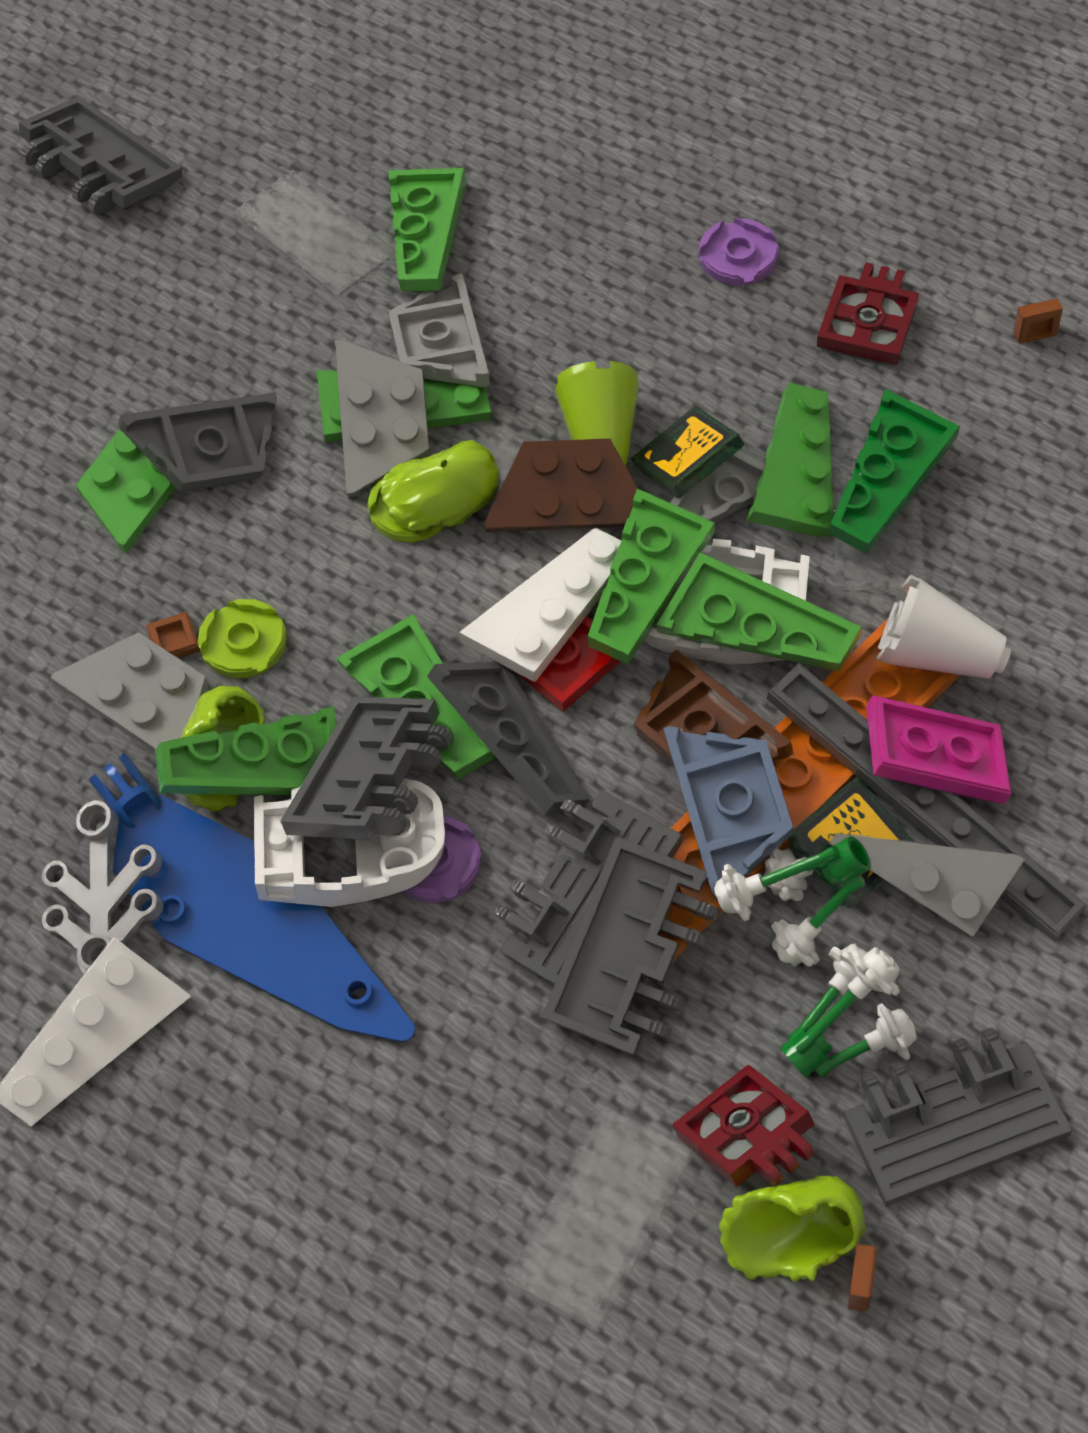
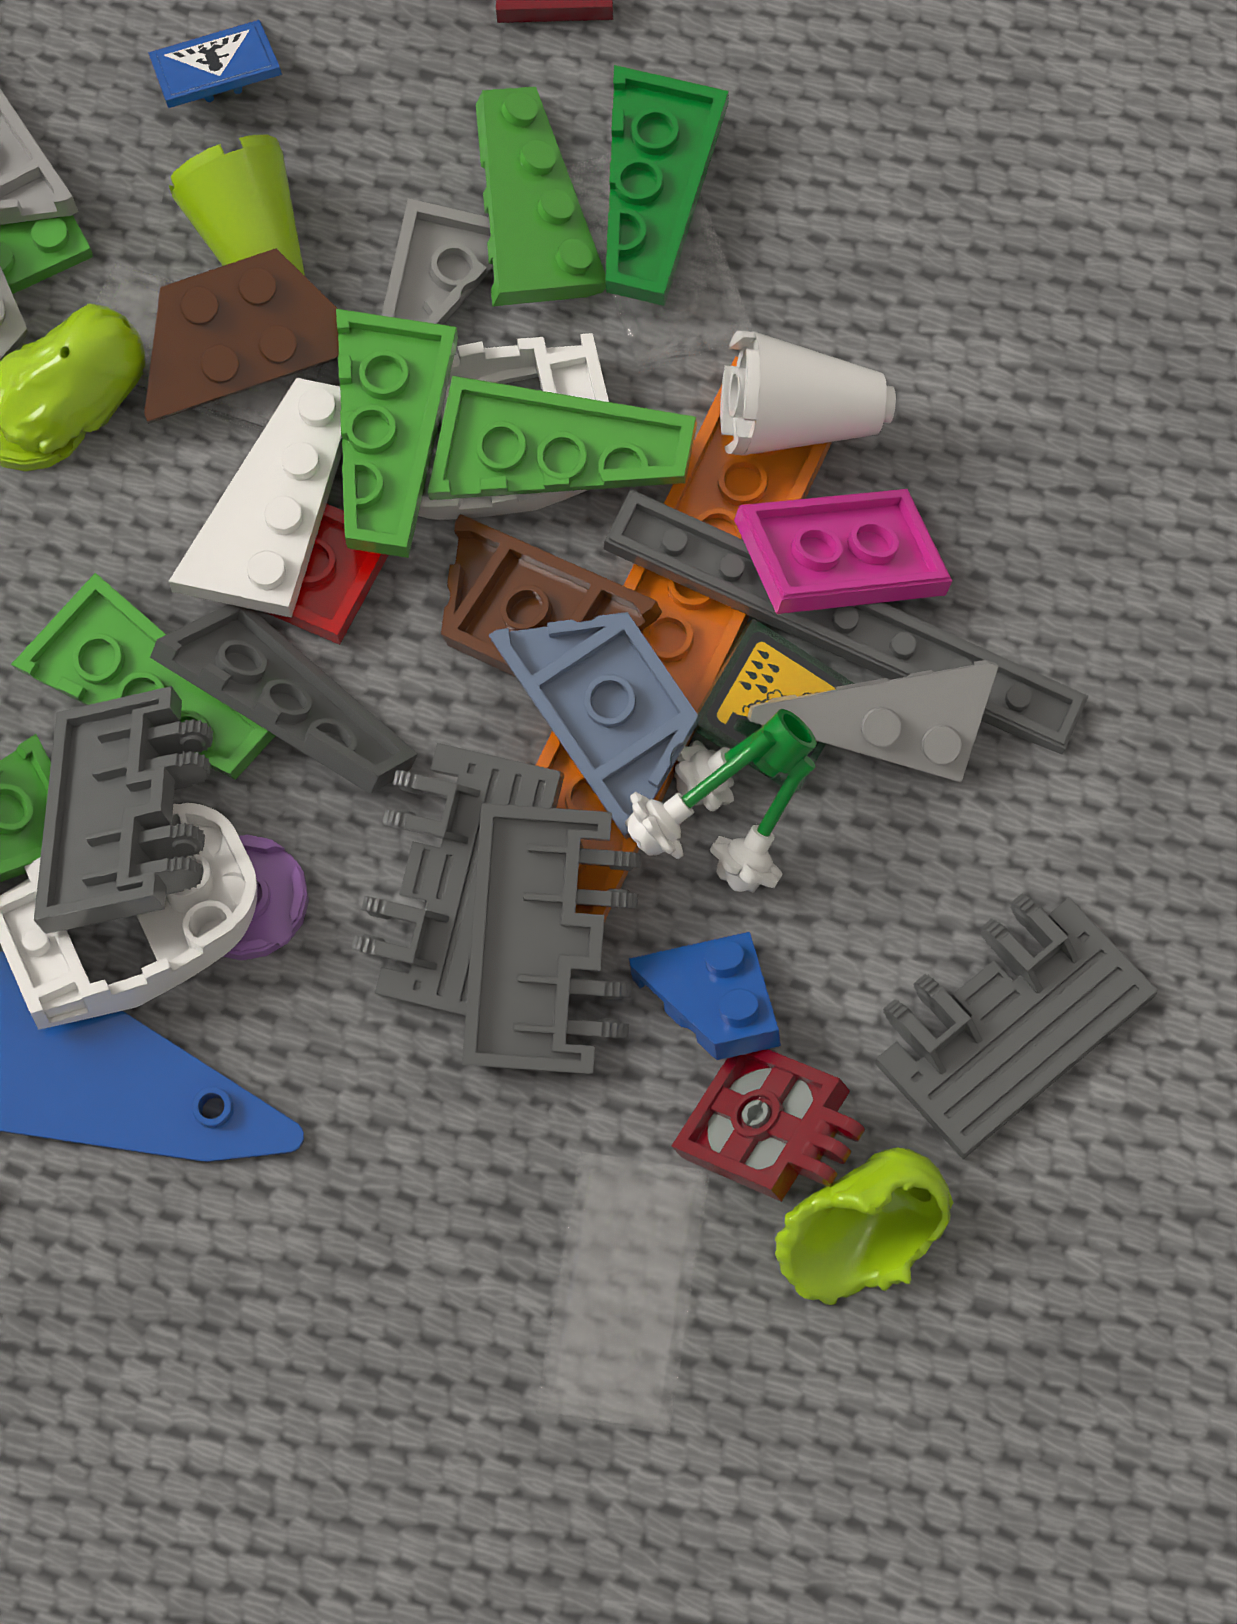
camera: 20 degrees left, 10 degrees up
(615, 320) = (214, 64): none -> piece
(687, 452) = (380, 231): tile -> none
(740, 1027) = (714, 993): none -> blue wing
(860, 973) = (861, 878): plant -> none
(862, 1277) = (966, 1259): dark orange tile -> none

